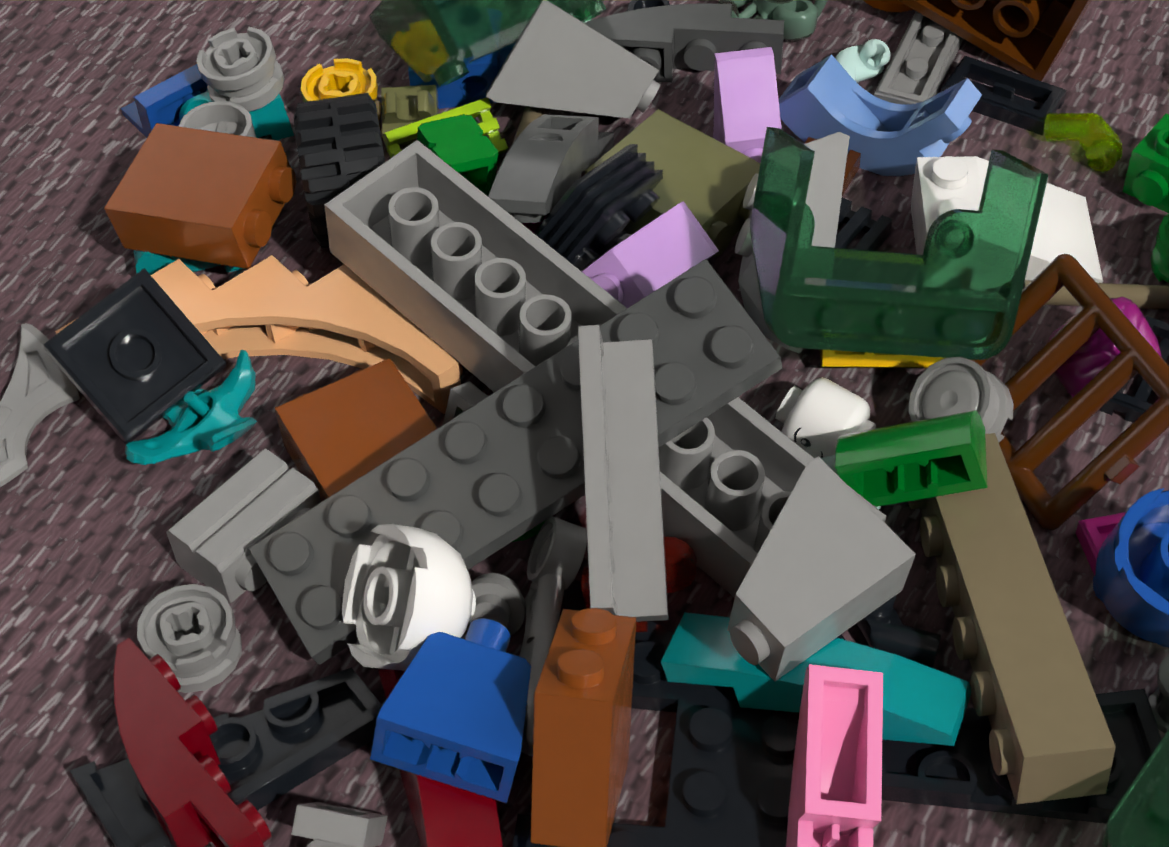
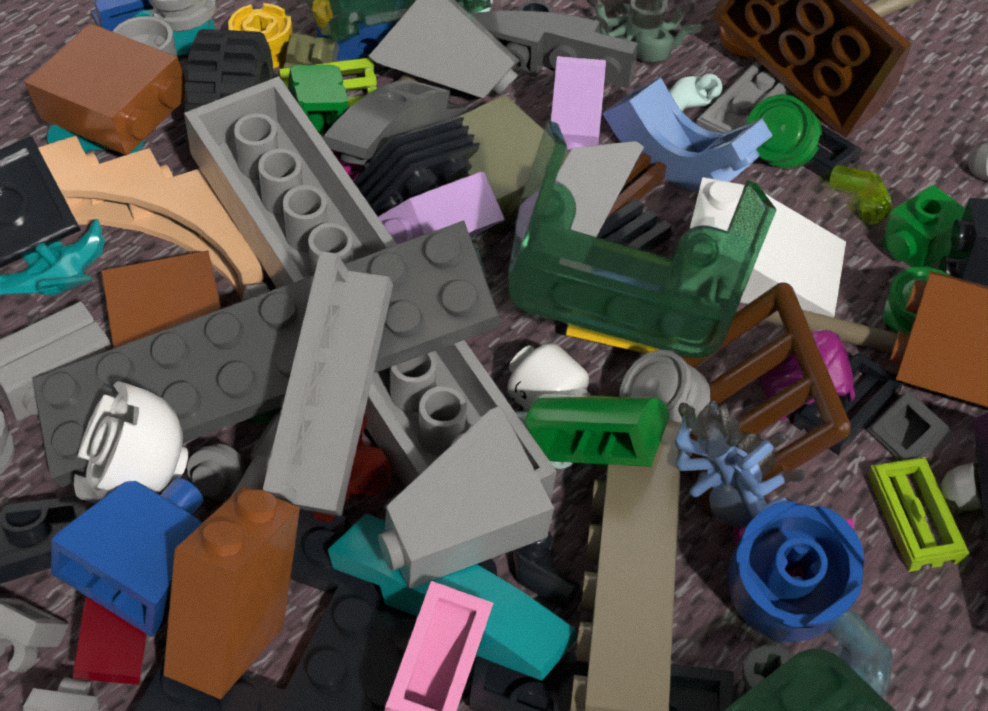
camera: 10 degrees right, 0 degrees up
(994, 79) = (793, 131): none -> green wheel
(1077, 465) = (733, 462): none -> animal

